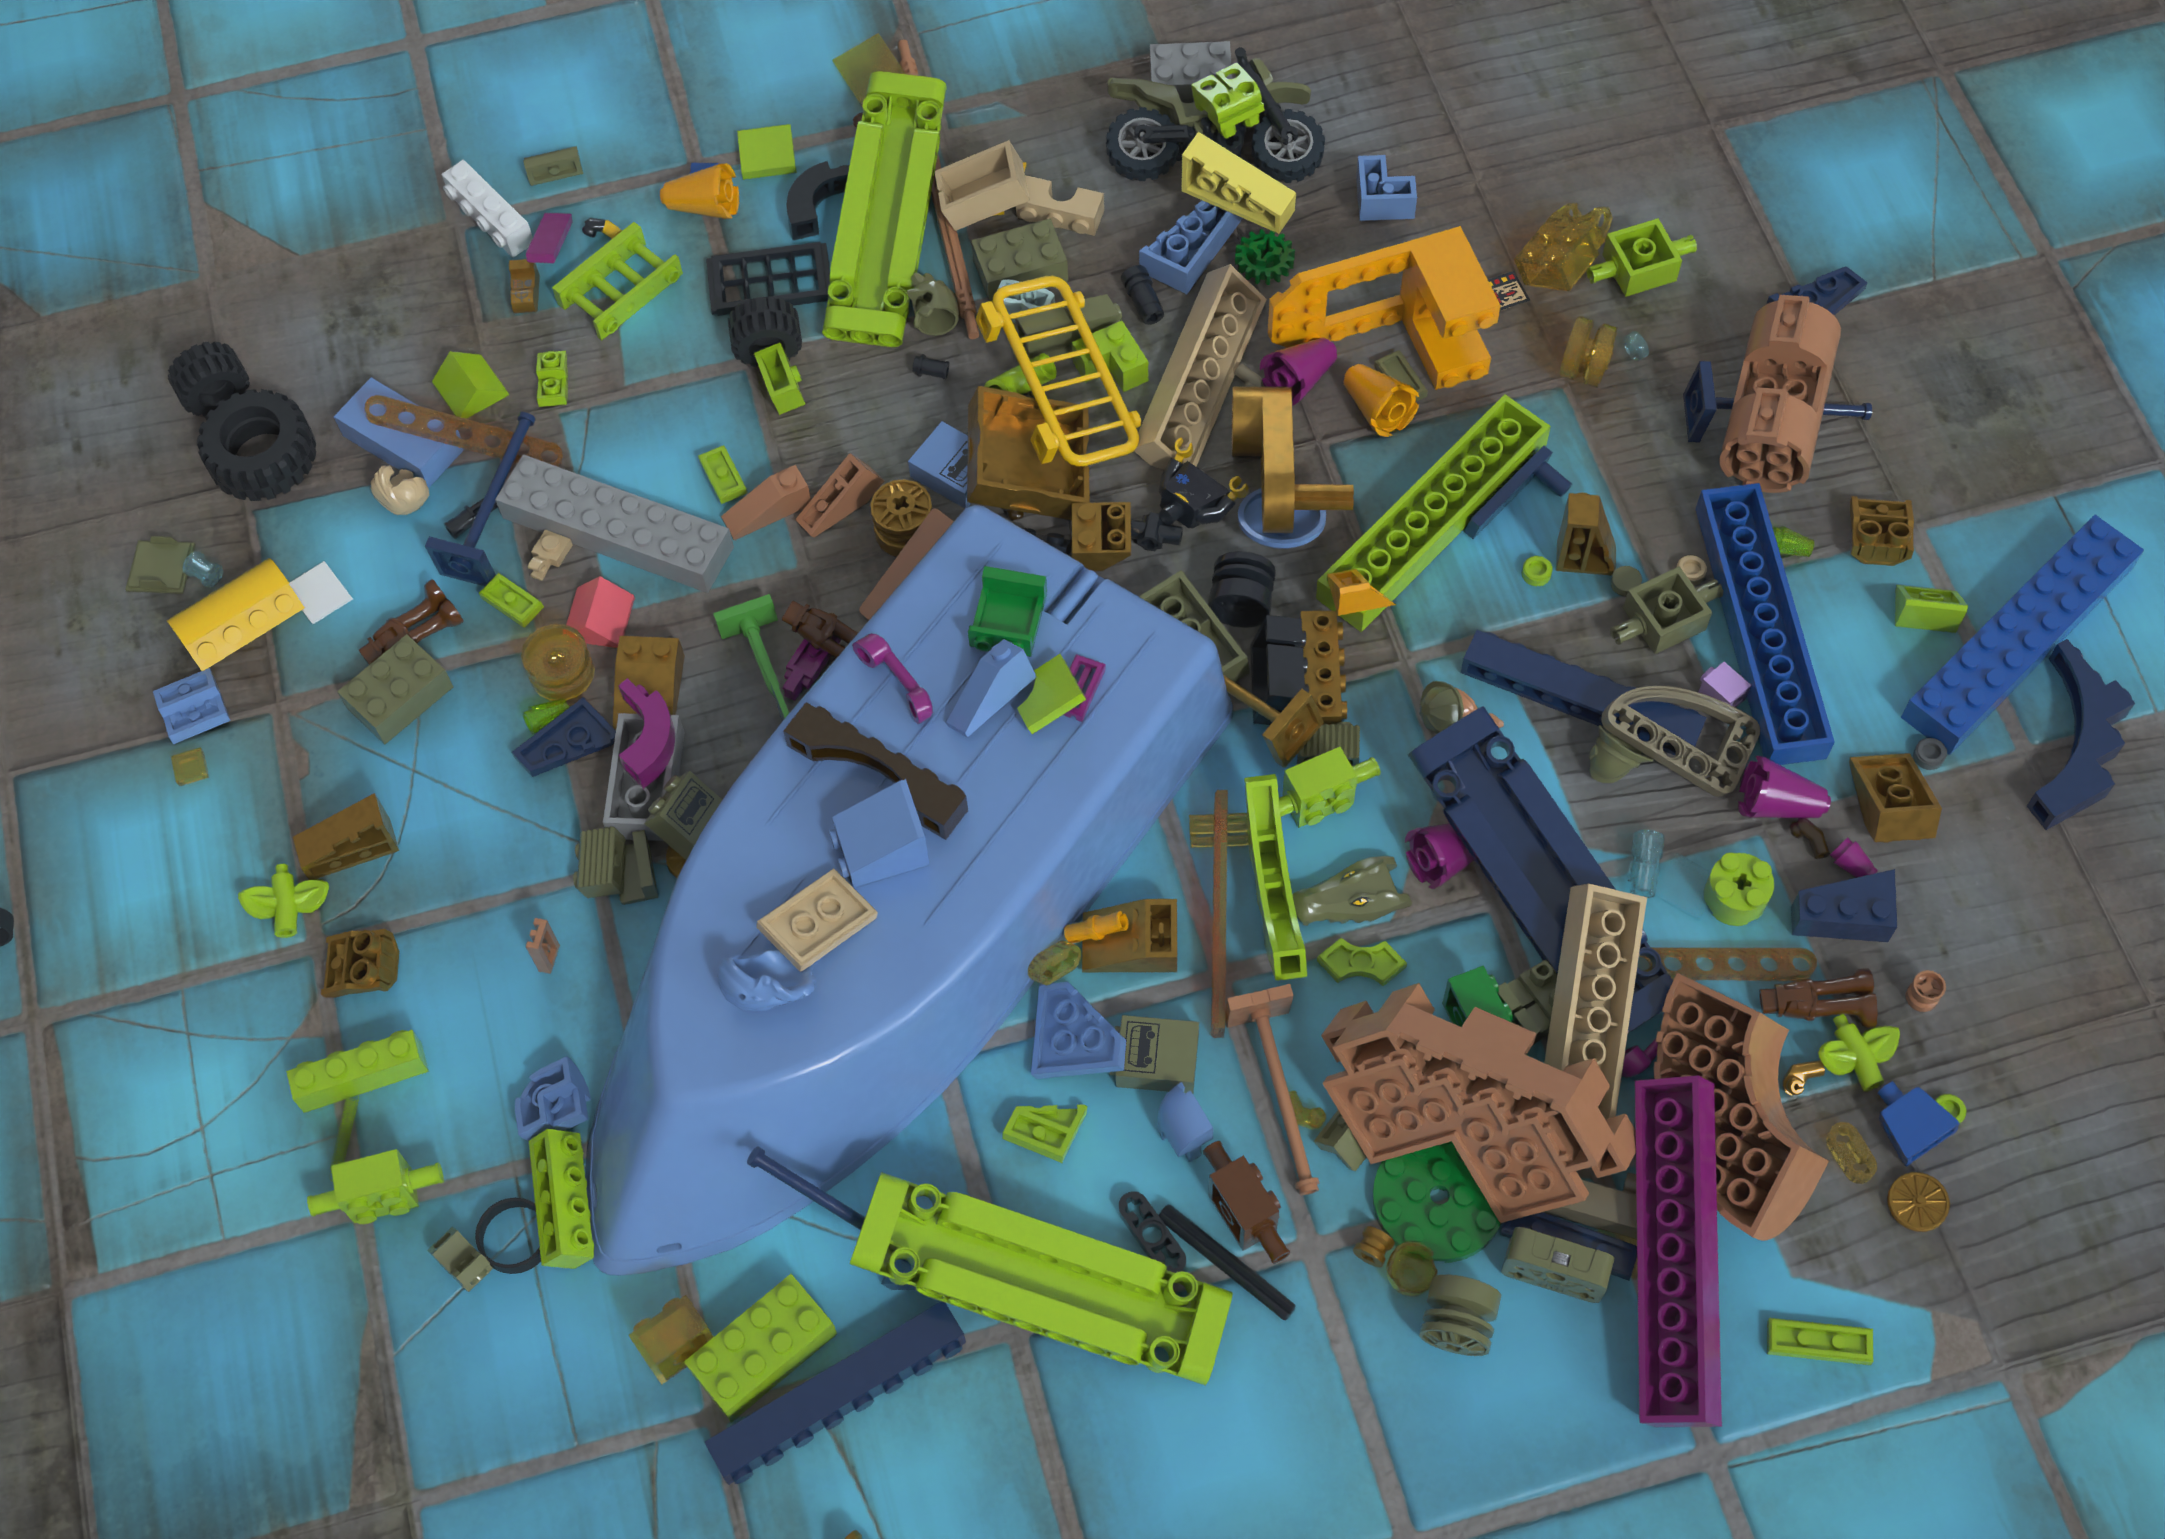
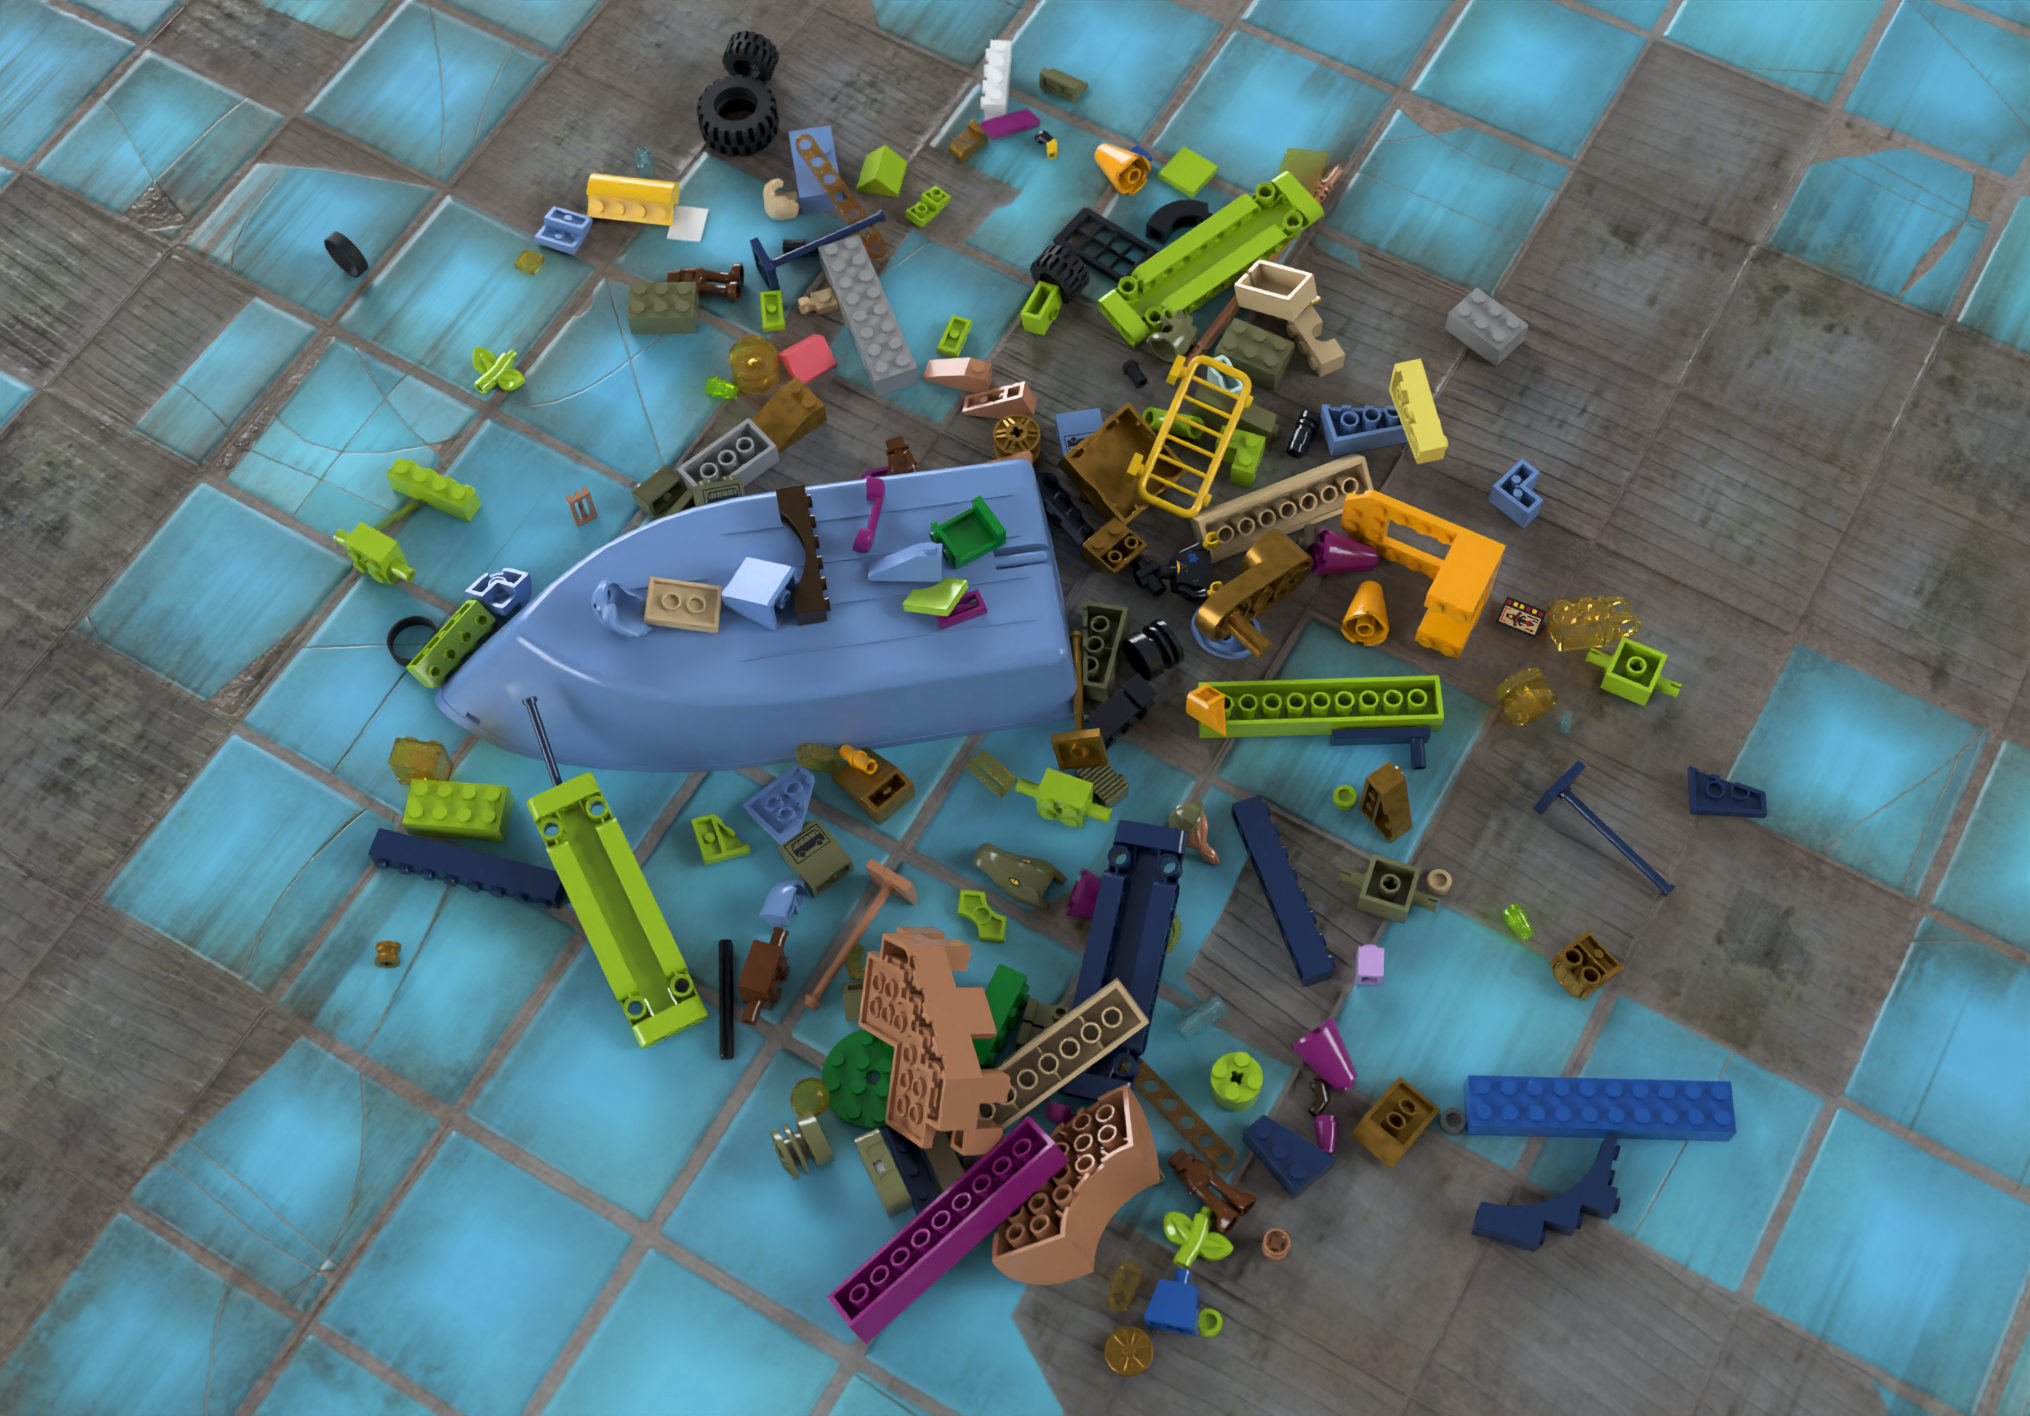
camera: 45 degrees right, 0 degrees up
(159, 566) = (626, 140): olive piece -> none
(346, 839) = (555, 365): pearl gold wedge -> none
(360, 962) = (495, 436): pearl gold slope -> none
(460, 1259) = (375, 628): olive brick -> none
(565, 739) = (715, 410): dark blue wing -> none
(605, 261) = (1021, 163): lime fence -> none
(656, 744) = (748, 447): magenta arch -> none
(747, 619) = (874, 427): bright green piece -> none
(1145, 1209) = (695, 962): black beam -> none
(1176, 123) = (1461, 370): piece -> none
(1219, 914) = (937, 811): clear orange tile -> none
(1229, 99) = (1467, 361): lime hips -> none
(1264, 256) = (1401, 473): green gear -> none
(1272, 880) = (994, 807): lime arch -> none
(1324, 663) = (1149, 736): pearl gold brick -> none
(1373, 1246) = (806, 1067): pearl gold wheel -> none
(1398, 368) = (1400, 614): olive tile -> none
(1613, 758) = (1258, 940): olive piece -> none
(1624, 579) = (1391, 849): olive tile -> none
(1684, 751) = (1289, 952): dark tan beam -> none
(1764, 625) = (1437, 950): blue brick -> none
(1781, 394) = (1609, 826): nougat cylinder -> none
(1798, 1075) = (1146, 1215): pearl gold arm -> none
(1820, 1341) = (982, 1364): lime tile -> none
(1928, 608) = (1558, 1037): lime slope -> none

